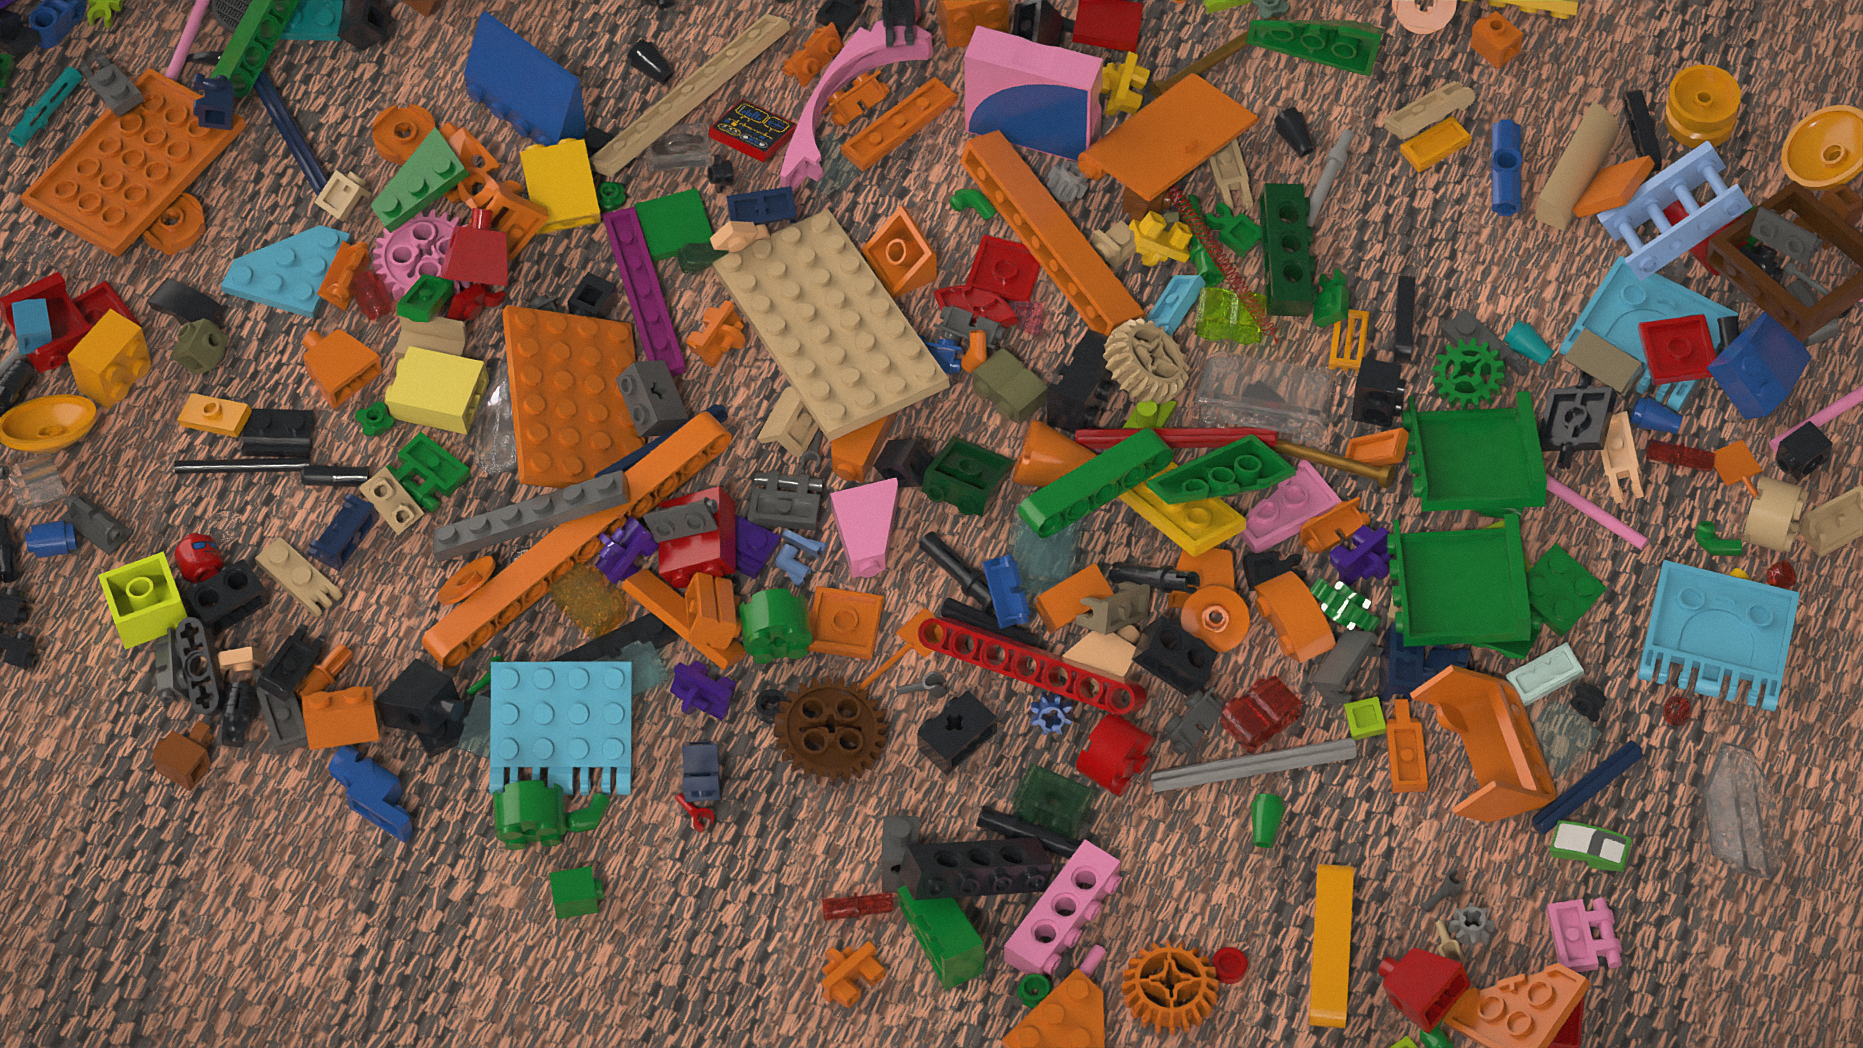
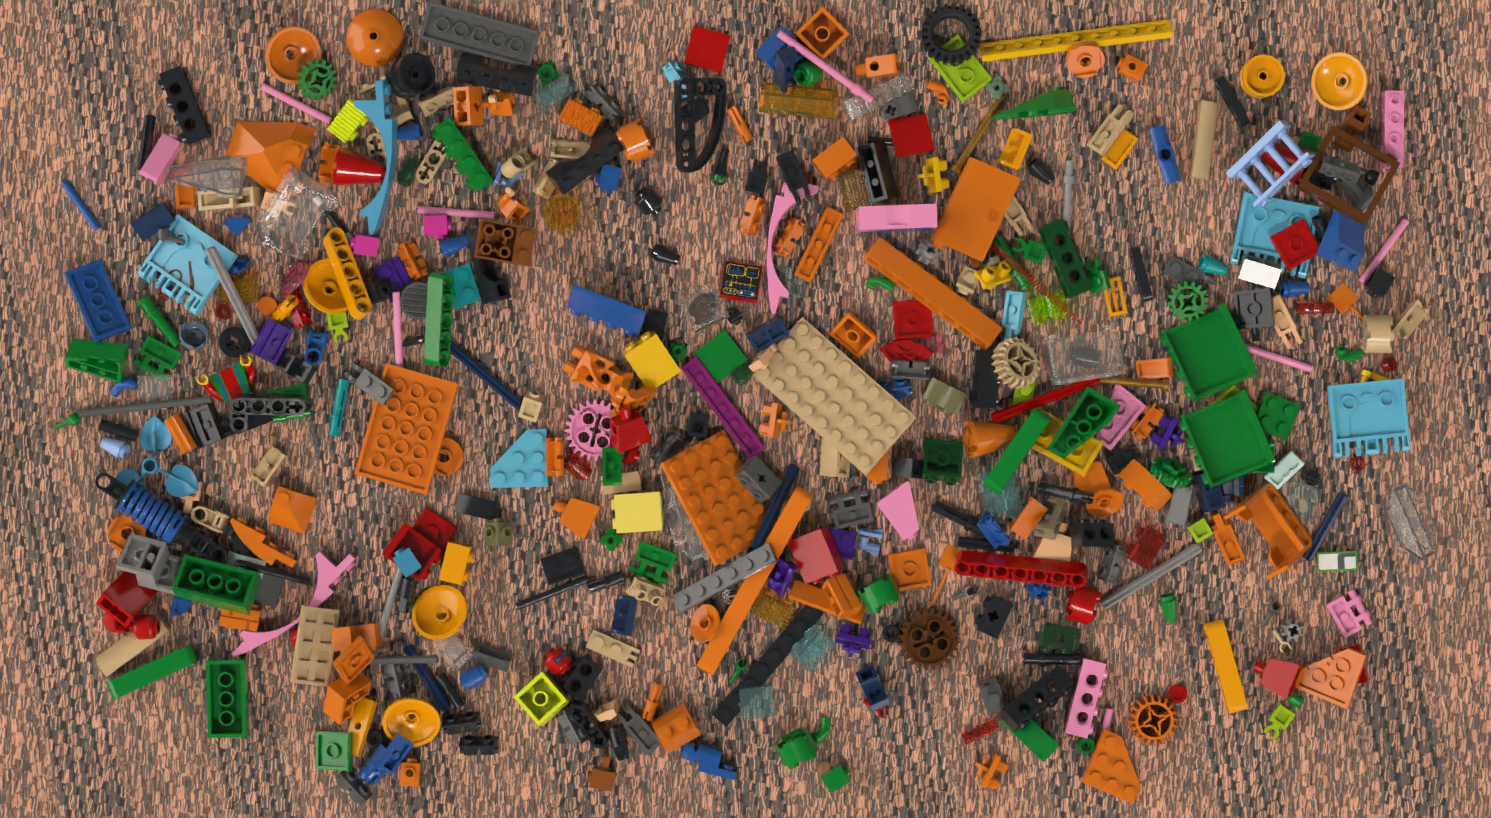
camera: 20 degrees left, 30 degrees up
(214, 415) = (524, 570): light orange plate -> none
(217, 106) = (441, 382): dark blue piece -> none
(290, 664) = (636, 706): black hinge -> none
(394, 120) = (557, 348): orange plate -> none
(419, 182) = (576, 391): green wing -> none
(420, 699) = (713, 703): black torso -> none
(561, 721) = (790, 689): medium azure hinge -> none
(682, 520) = (800, 555): dark grey hinge -> none
(688, 95) = (696, 271): tan tile -> none
(976, 353) = (919, 384): orange arm -> none
(1271, 90) = (1015, 149): none -> light orange hinge
(1378, 393) = (1145, 334): black brick -> none
(1613, 186) = (1229, 151): orange tile -> none

